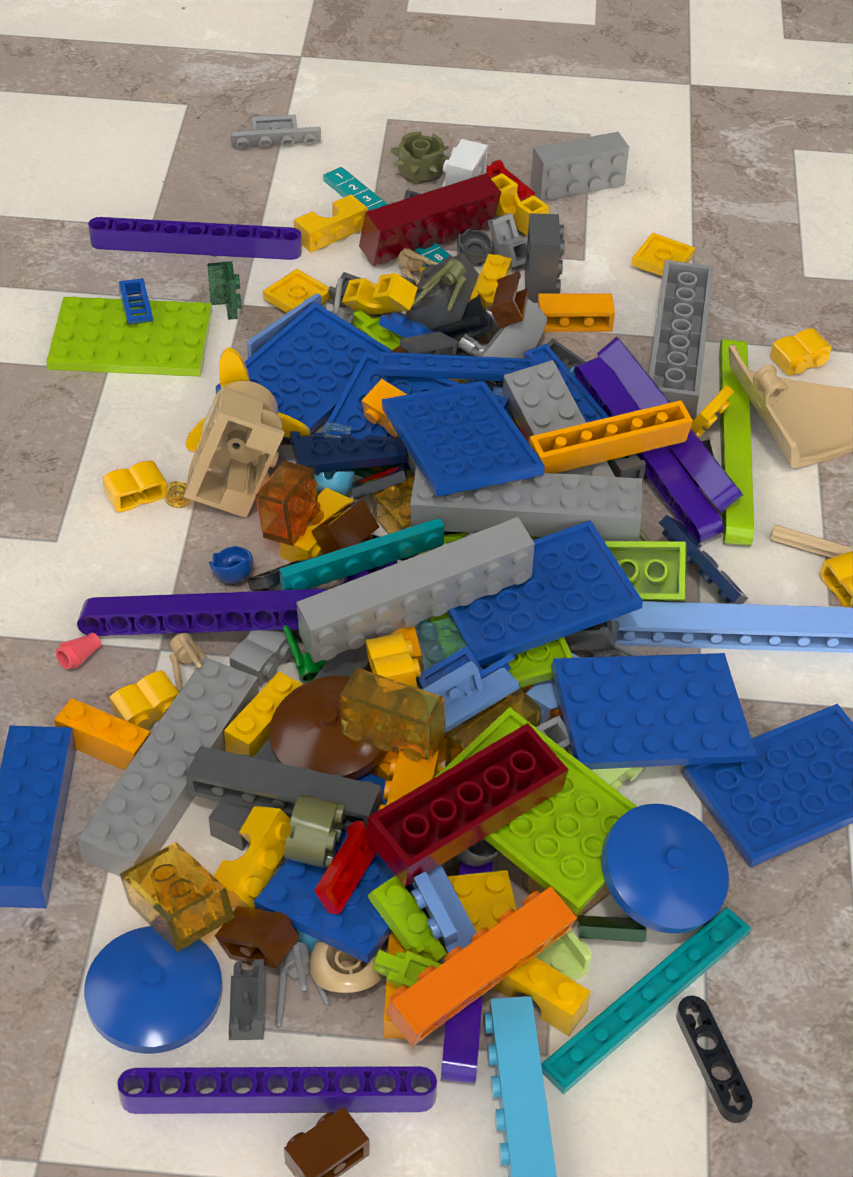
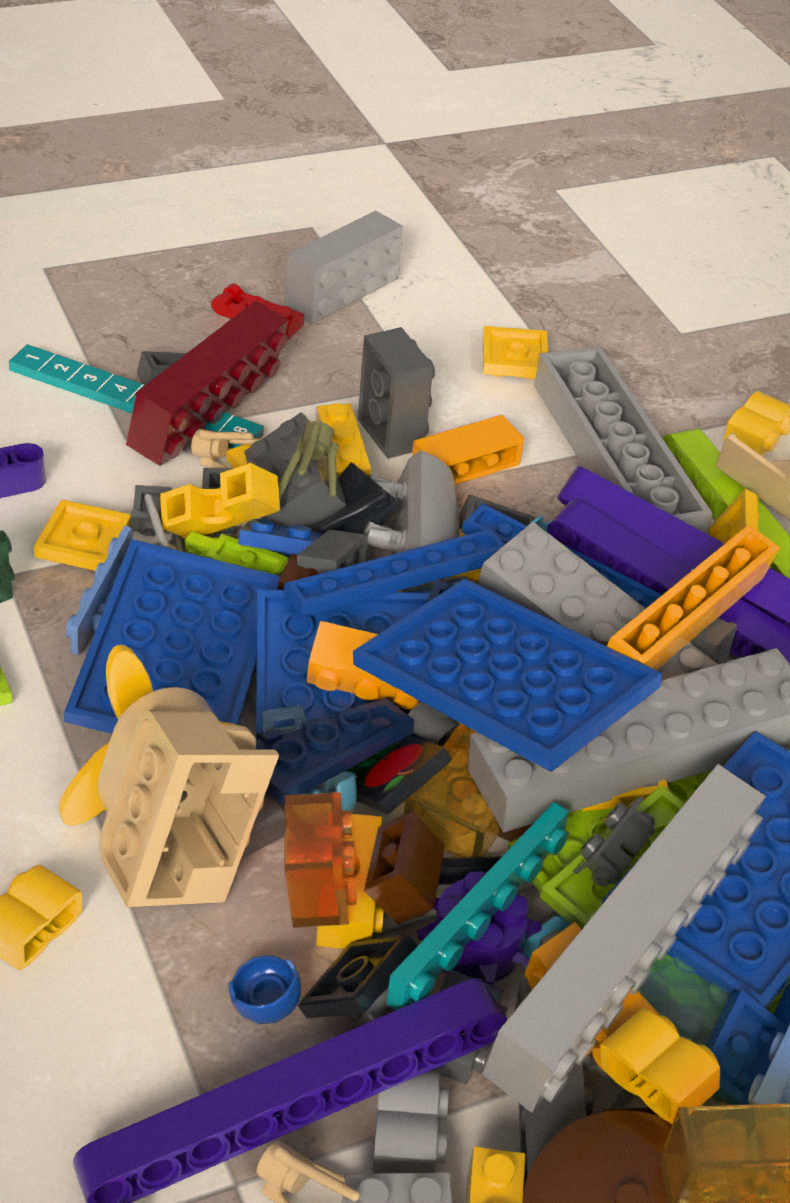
camera: 30 degrees left, 5 degrees down
(171, 497) = (104, 905): clear yellow bush -> none
(306, 667) = (491, 1114): green plant -> none
(322, 231) = (81, 412): yellow arch -> none
(420, 157) = (131, 304): olive brick -> none
(466, 162) = (205, 301): white brick -> none
(474, 245) = (280, 401): dark grey hair -> none
(506, 239) = (318, 383): light grey brick -> none
(509, 304) = (405, 458): reddish brown window -> none
(510, 203) = (322, 347): yellow arch -> none

